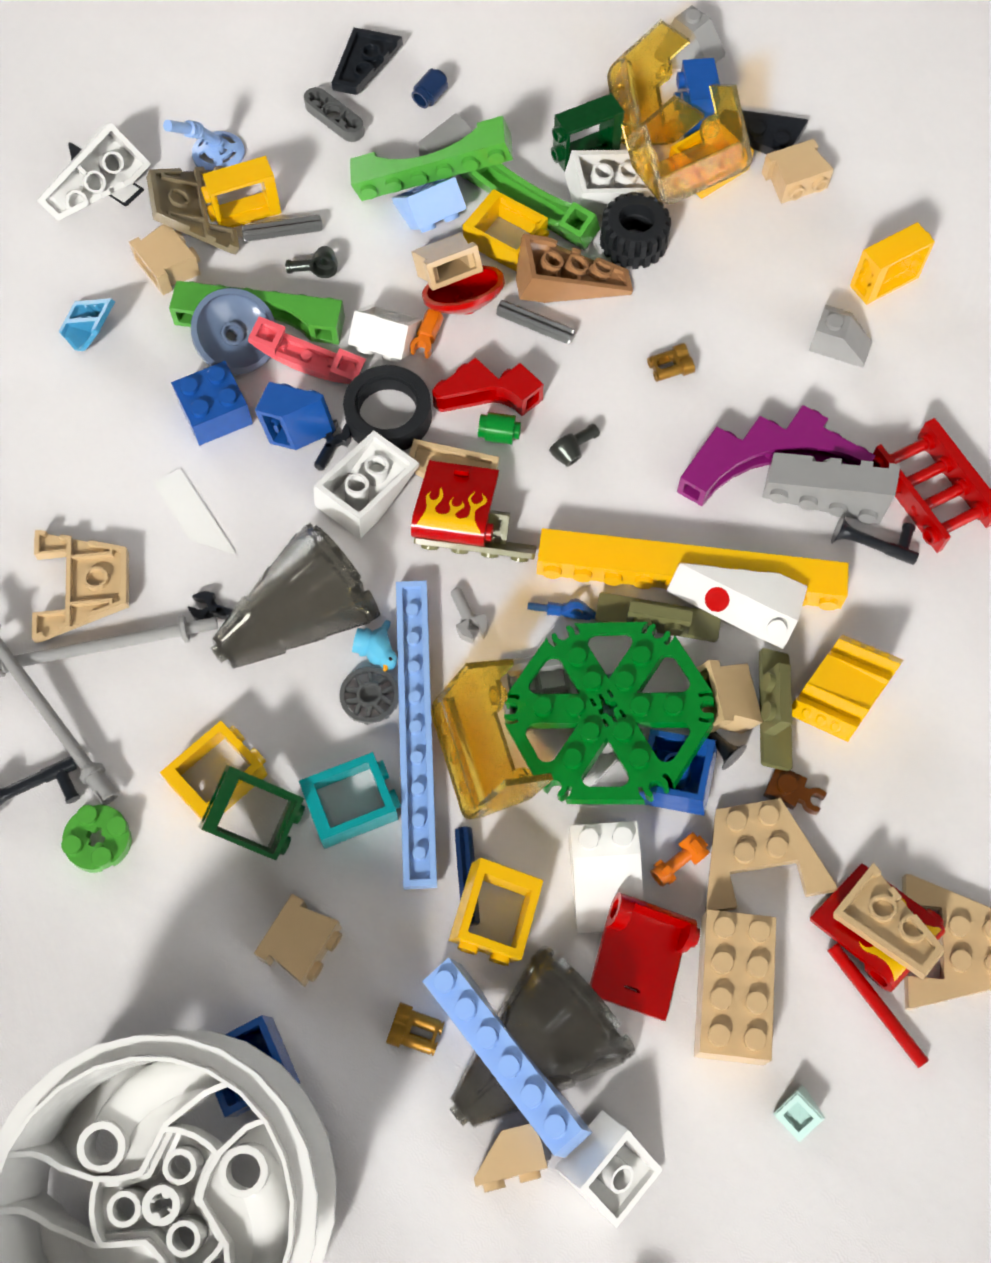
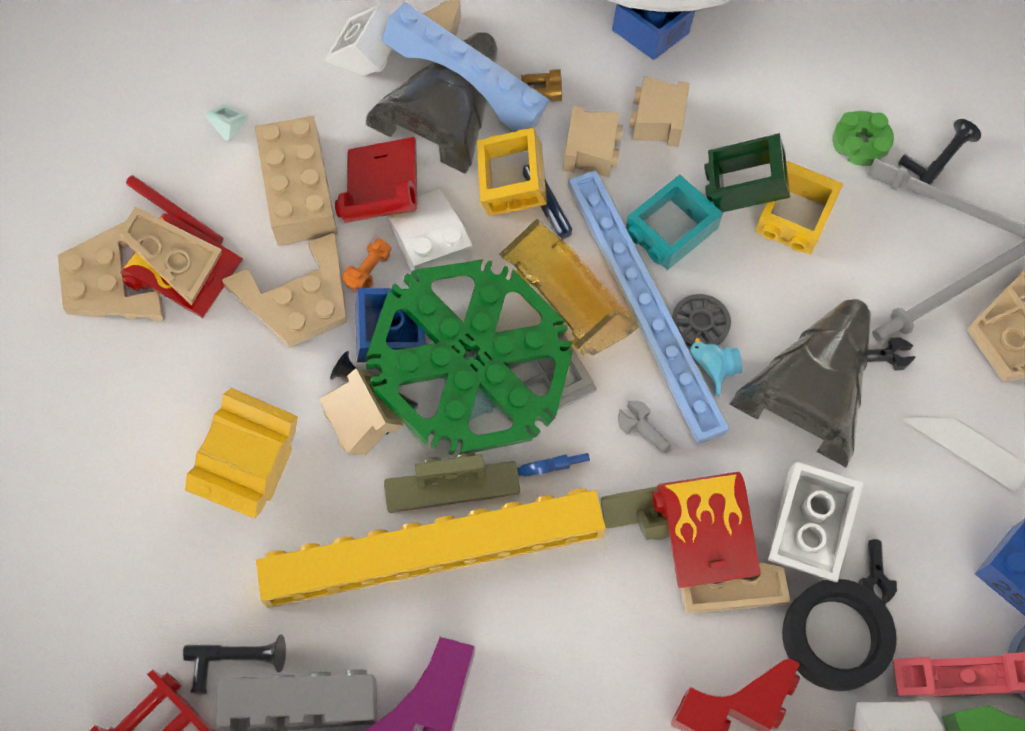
camera: 160 degrees right, 0 degrees up
(293, 416) = (937, 570): blue slope -> none
(390, 926) = (592, 141): none -> tan hips
(499, 428) = (703, 652): green brick -> none
(567, 448) = (616, 654): pearl dark grey bar -> none
(751, 600) = (354, 512): white wedge -> none
(775, 709) = (311, 428): olive bracket -> none
(791, 789) = (280, 361): reddish brown plate -> none

